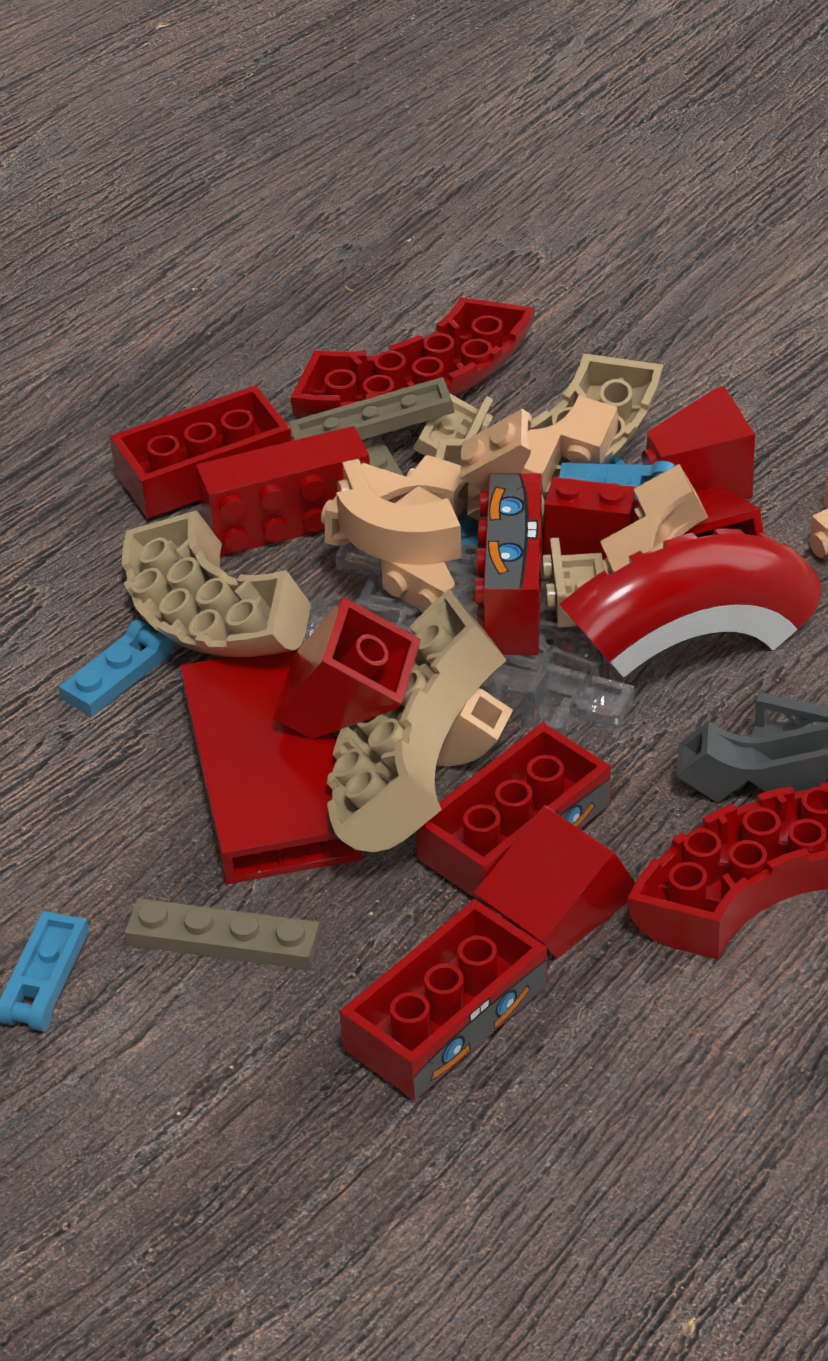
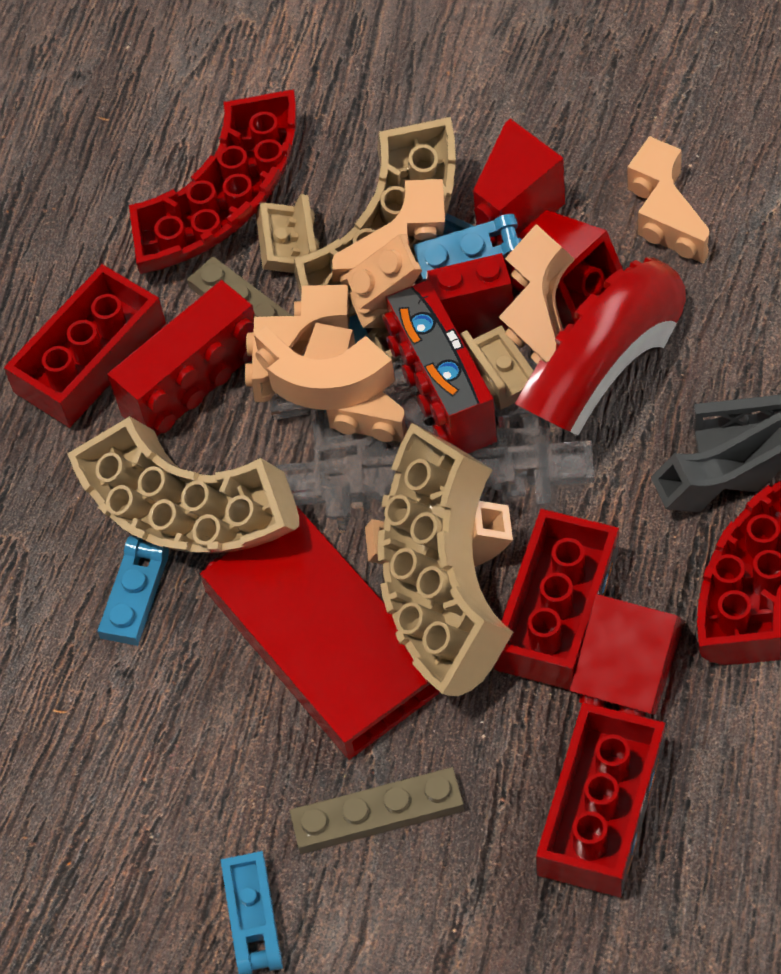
camera: 20 degrees left, 15 degrees up
(346, 672) = (365, 536): red slope -> none
(381, 413) = (217, 255): dark tan plate -> none

